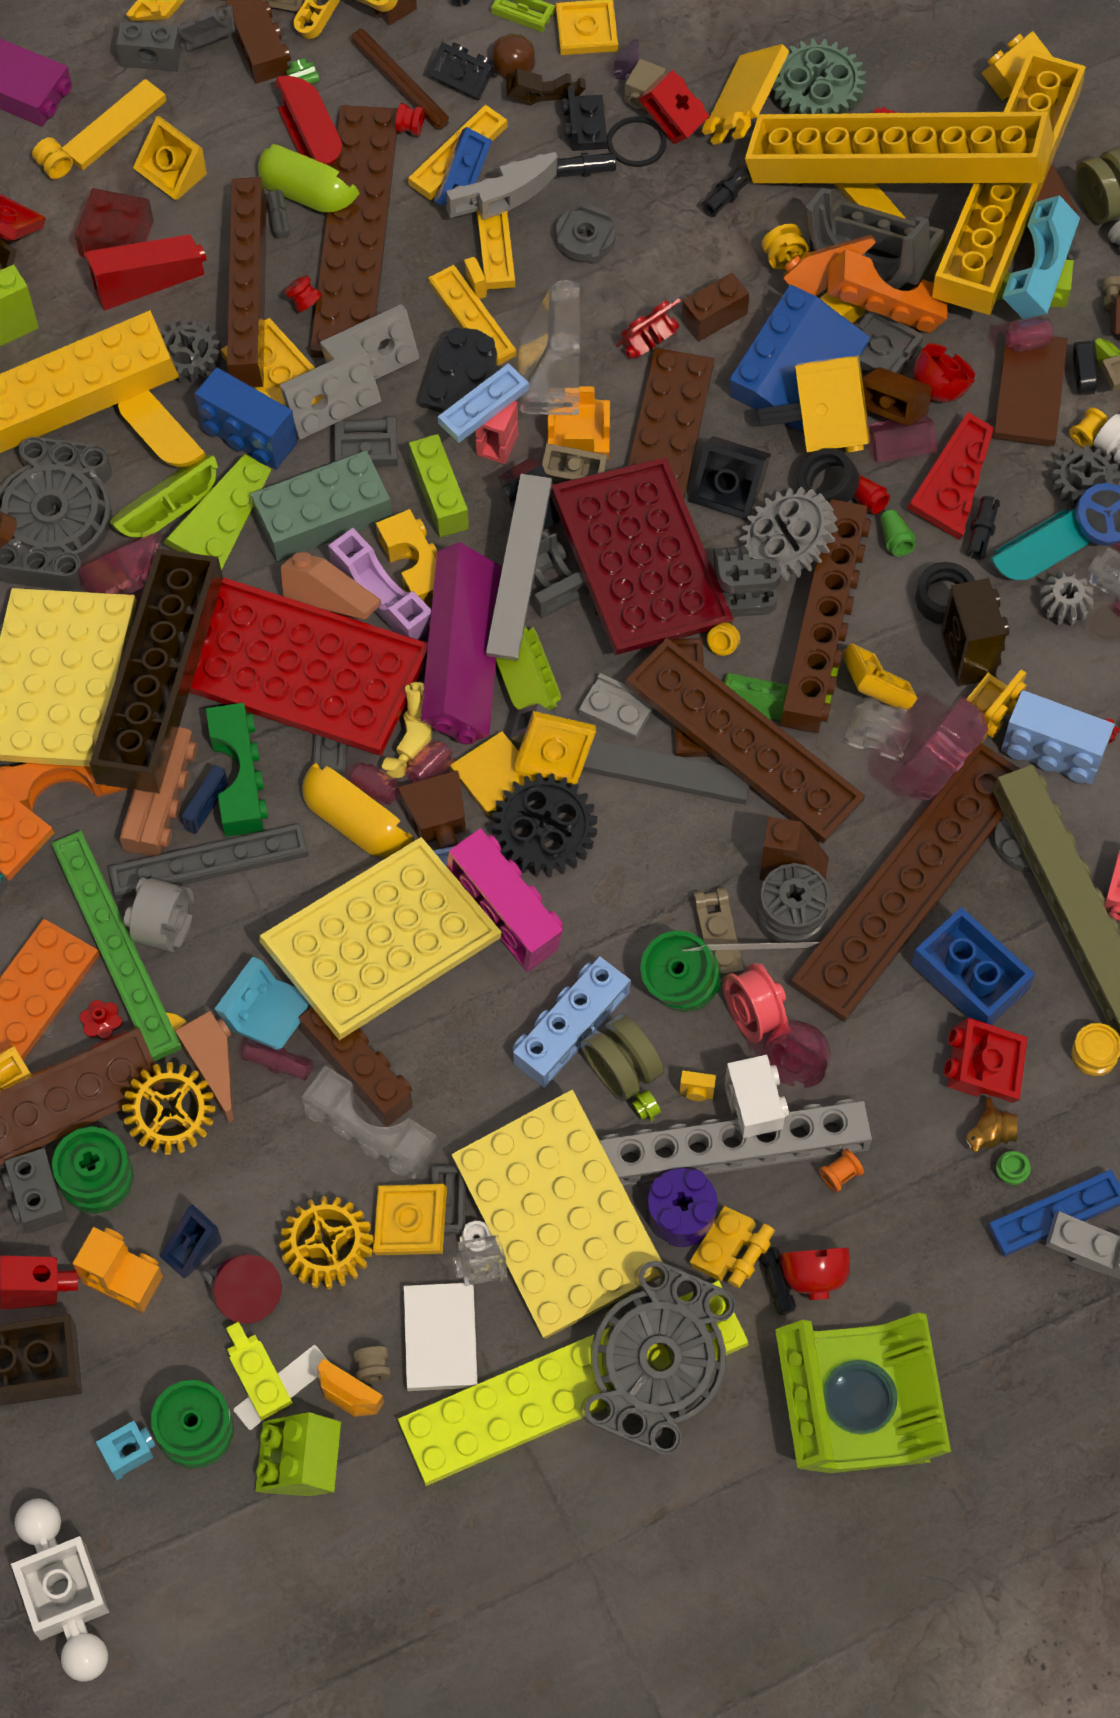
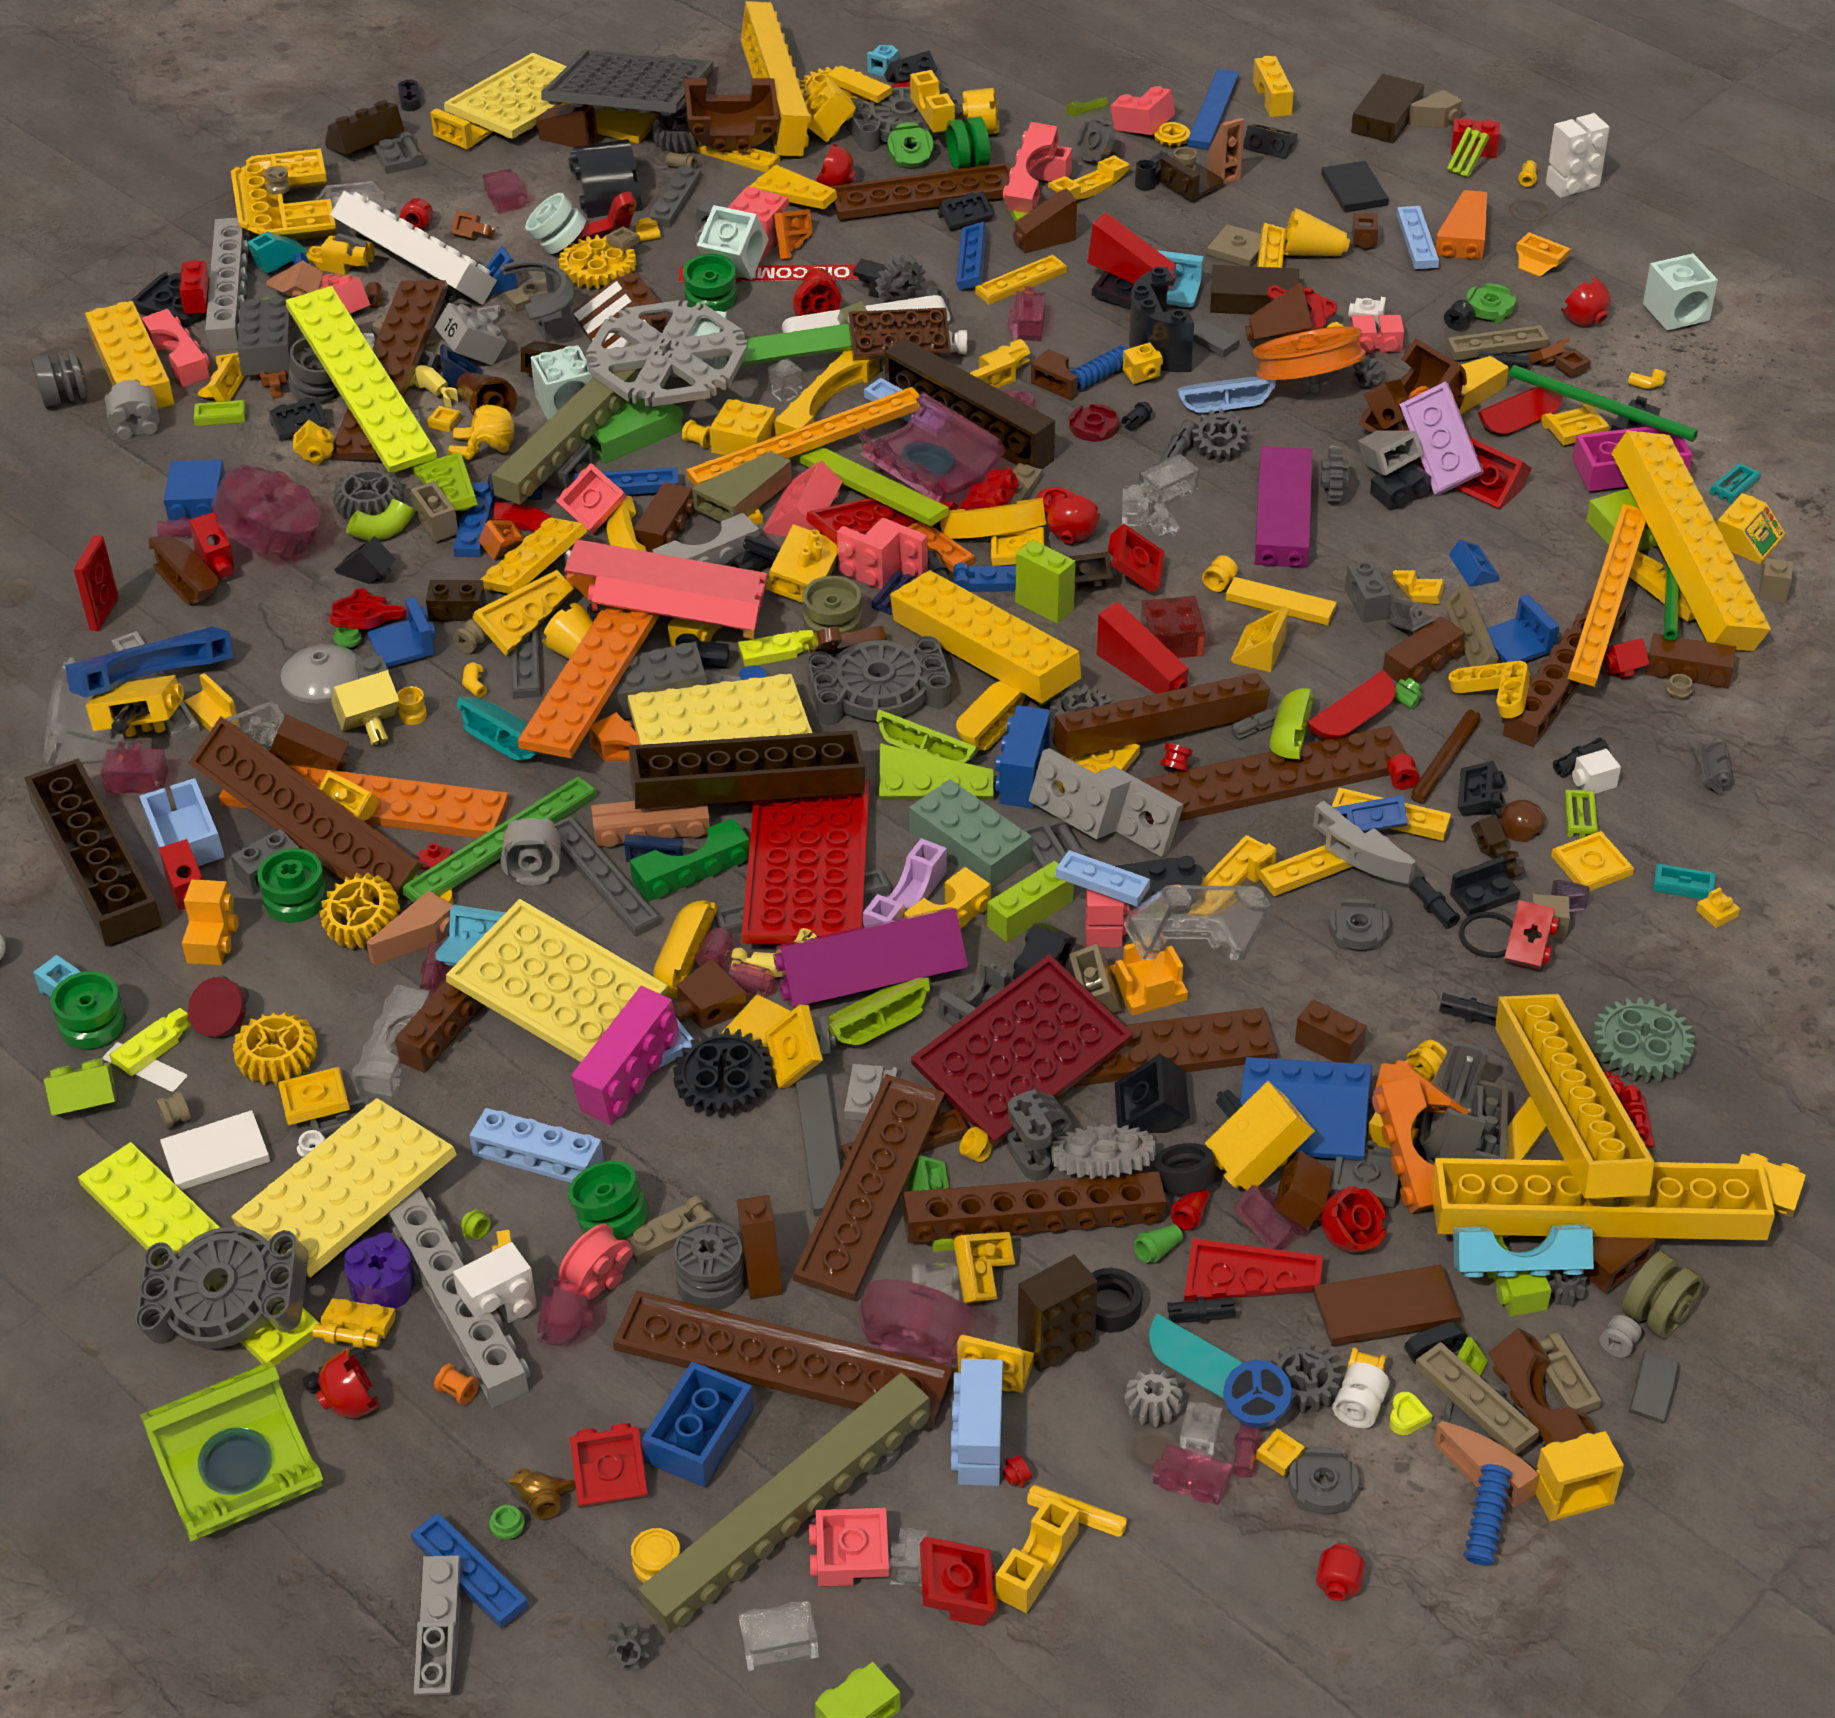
camera: 70 degrees right, 20 degrees down
(121, 568) = (836, 718): clear pink slope -> none
(191, 1242) = (254, 966): dark blue slope -> none
(326, 587) = (885, 855): nougat slope -> none
(347, 1391) = (140, 1093): light orange slope -> none
(481, 1261) = (284, 1147): clear brick -> none
(519, 567) = (957, 960): light grey tile -> none
(622, 1057) = (505, 1182): olive wheel -> none
(649, 330) = (1270, 986): red hinge -> none
(745, 92) = (1581, 983): yellow tile -> none
(756, 946) = (654, 1248): white sticker -> none
(1029, 334) = (1437, 1274): clear pink brick -> none

